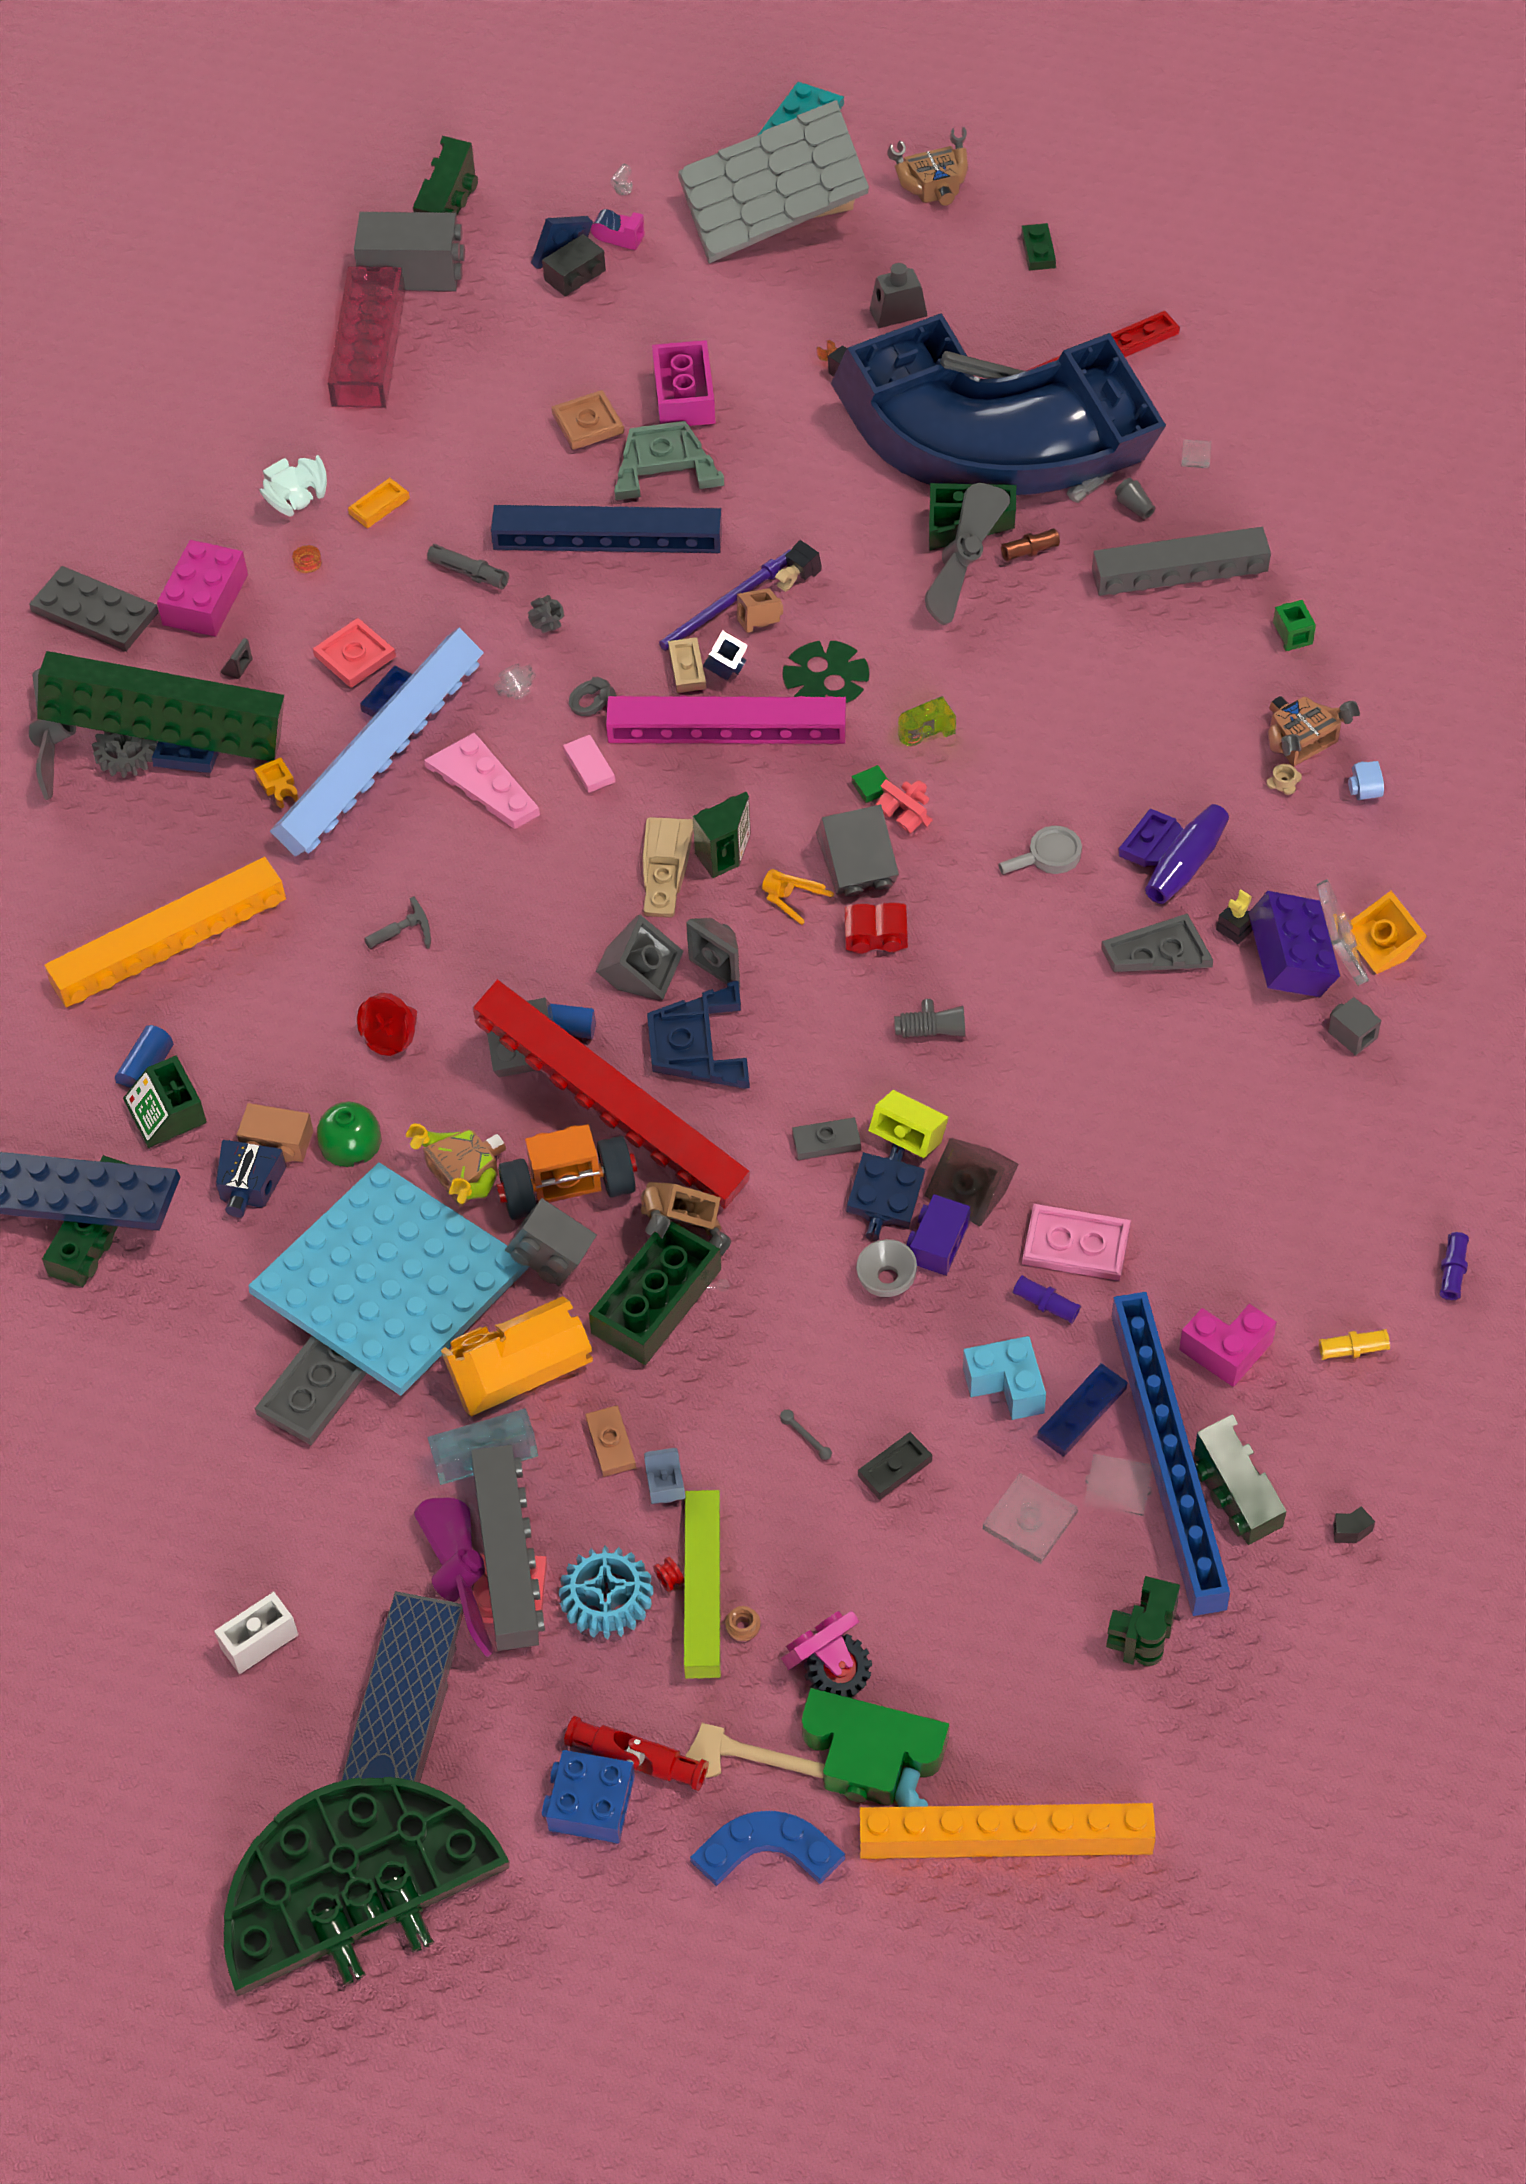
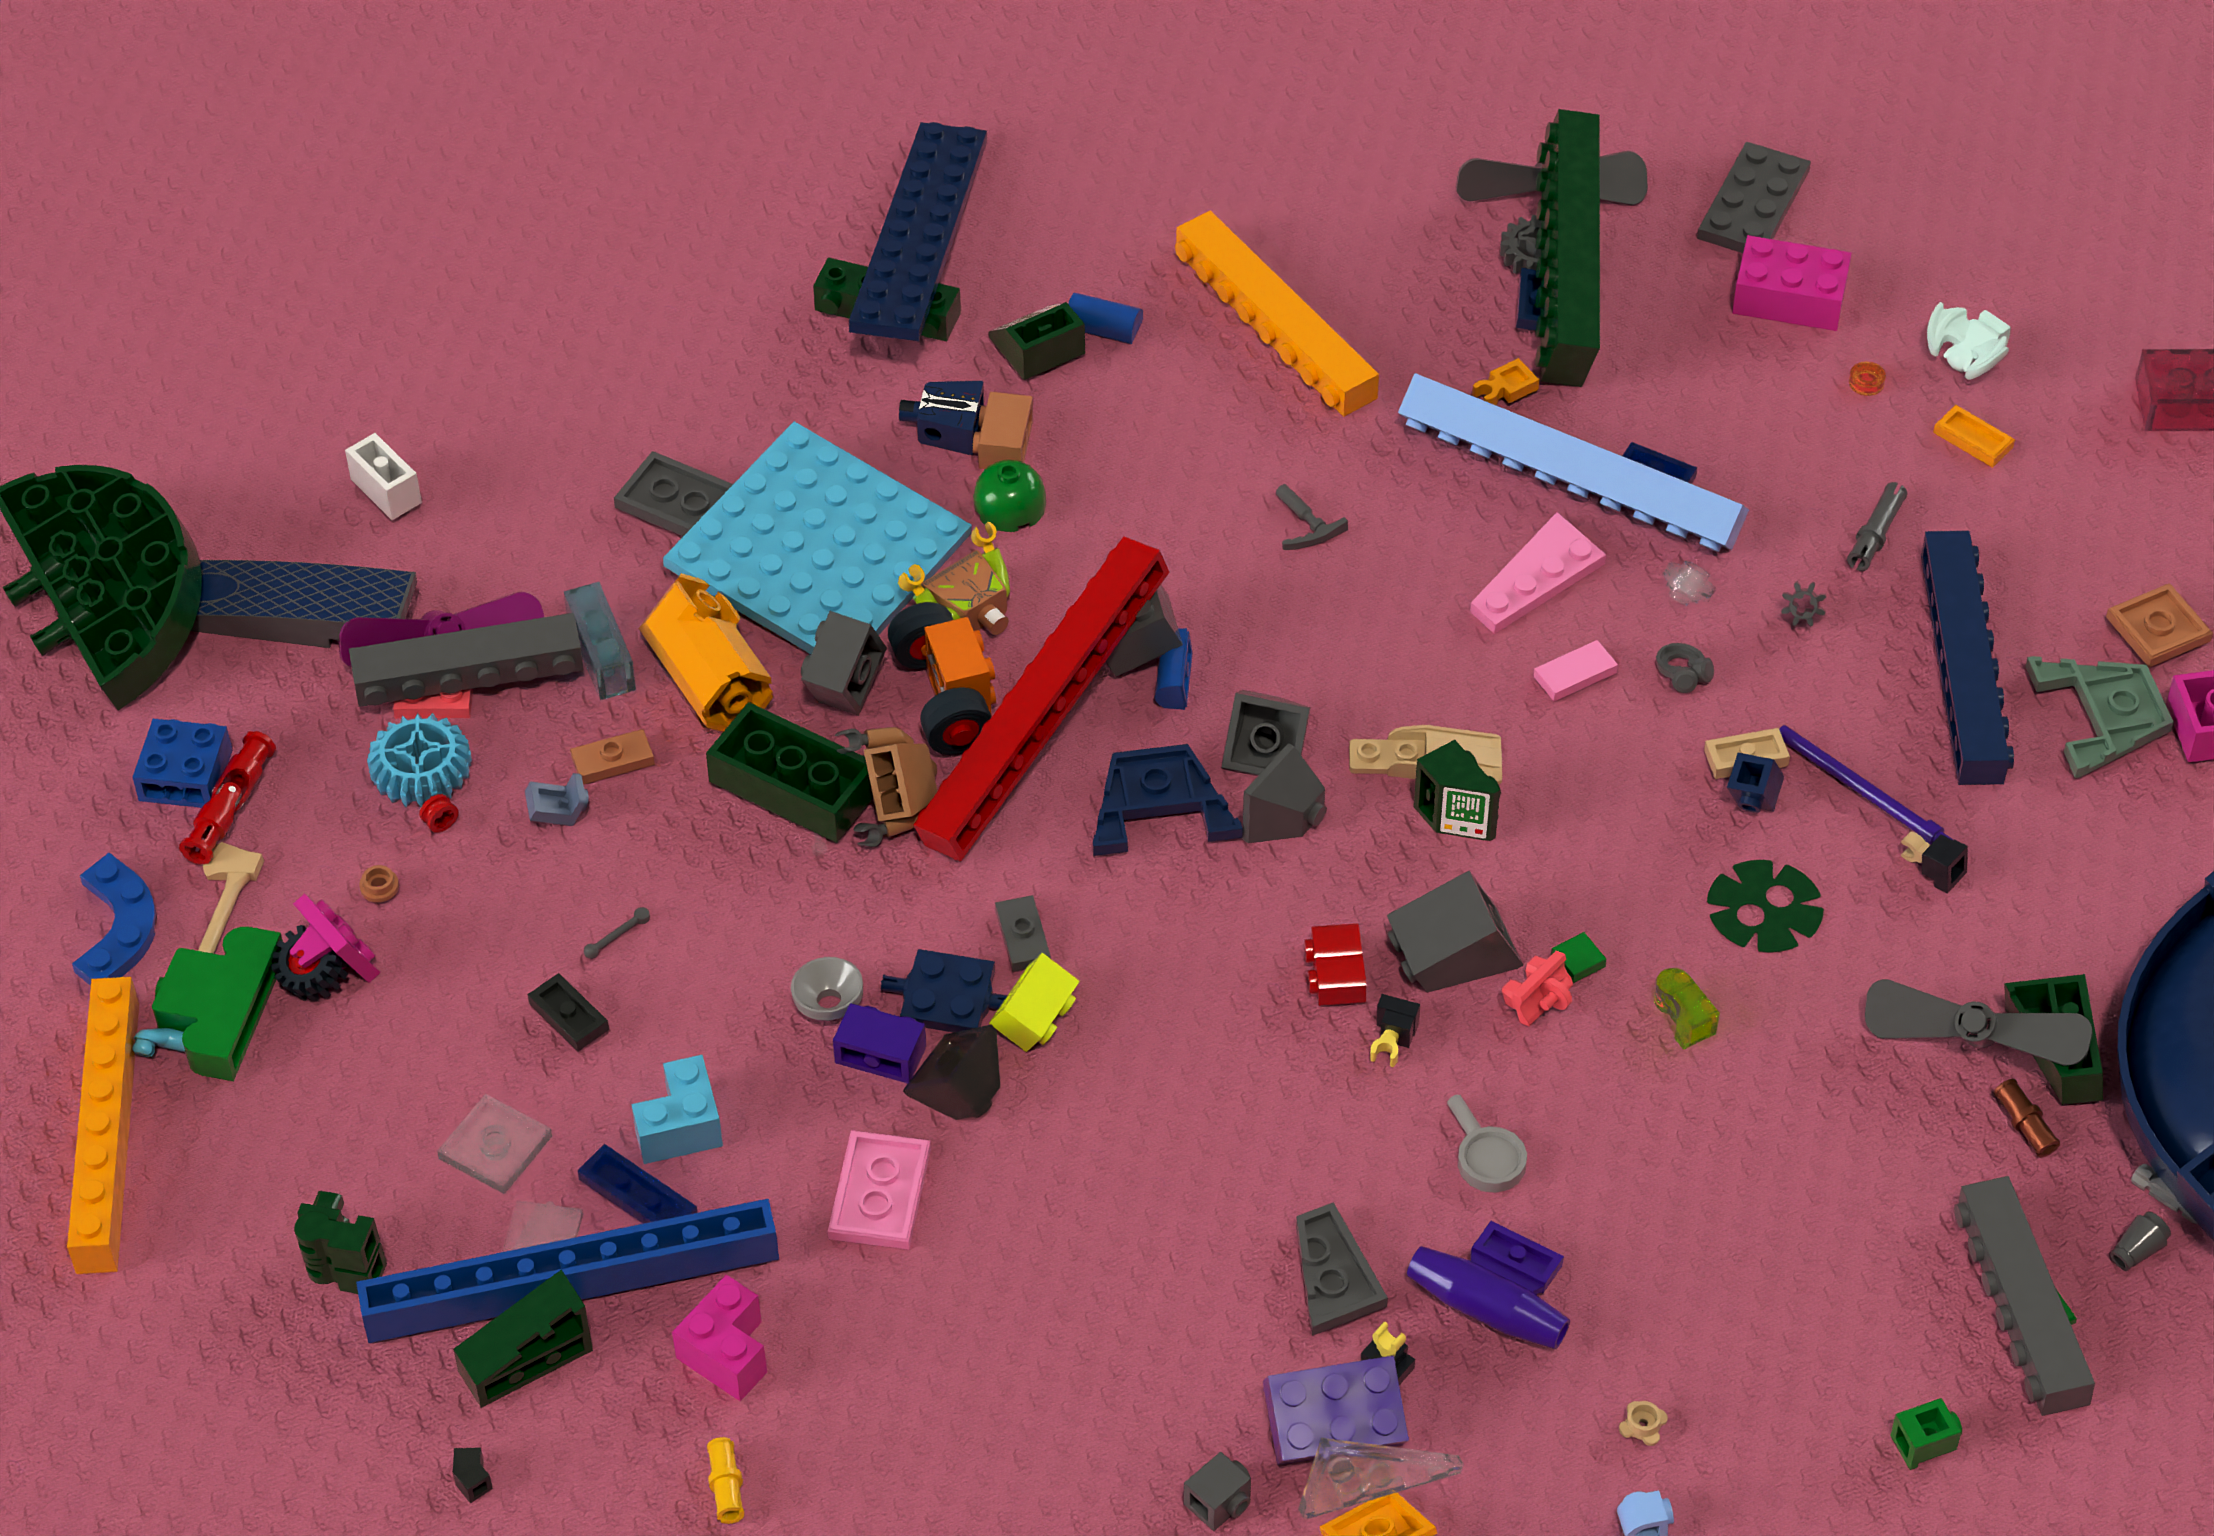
camera: 85 degrees right, 5 degrees down
(238, 660) = (1689, 330): dark grey slope -> none
(354, 652) = (1716, 432): coral plate -> none
(386, 1023) = (1154, 511): red tile -> none
(702, 1585) = (424, 843): lime slope -> none
(726, 719) = (1659, 800): dark pink brick -> none
(758, 609) = (1850, 817): nougat brick -> none
(782, 885) = (1395, 867): light orange plant -> none
(931, 1022) = (1195, 1027): dark grey piece -> none
(934, 895) = (1398, 1026): none -> black piece
(1046, 1299) = (791, 1155): dark purple pin -> none
(1306, 727) = (1727, 1437): nougat torso -> none

